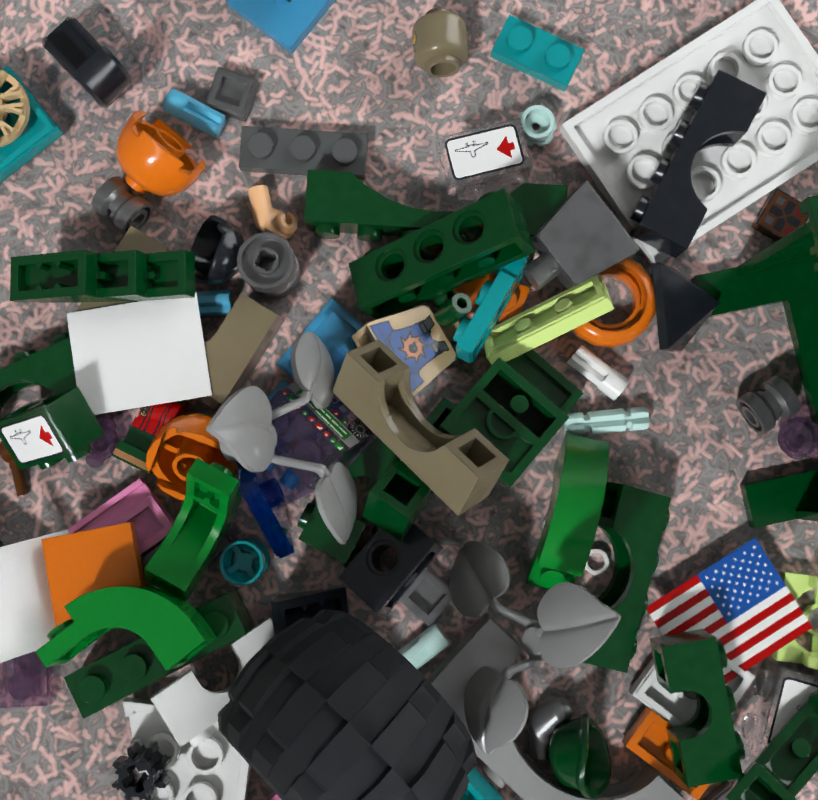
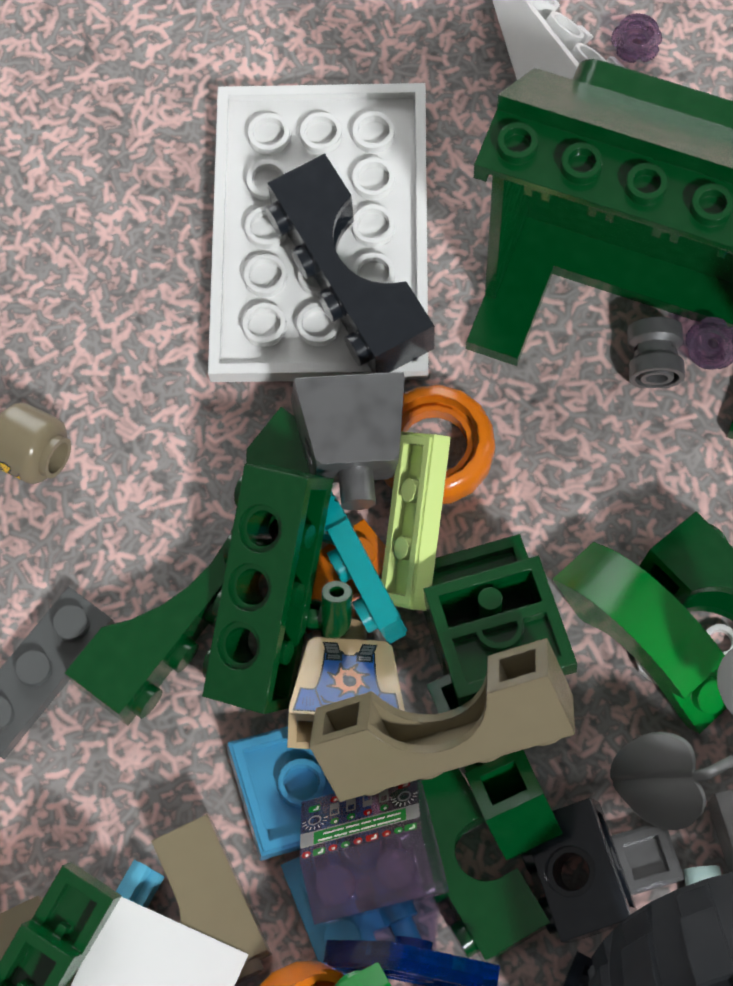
camera: 55 degrees left, 15 degrees down
(216, 250) = (70, 828): black hair -> none
(250, 438) = (342, 904): light grey plant -> none
(268, 218) = (84, 761): light nougat arm -> none
(269, 265) = (141, 790): flat silver wheel -> none
(484, 159) = (188, 479): brick -> none
(537, 53) = (110, 353): teal plate -> none
(544, 118) = (187, 389): light aqua plate -> none
(598, 372) = (506, 505): white piece -> none
(607, 421) = (569, 527): light aqua axle -> none
(679, 307) = (490, 375): black slope -> none
(779, 216) = (460, 220): tile -> none

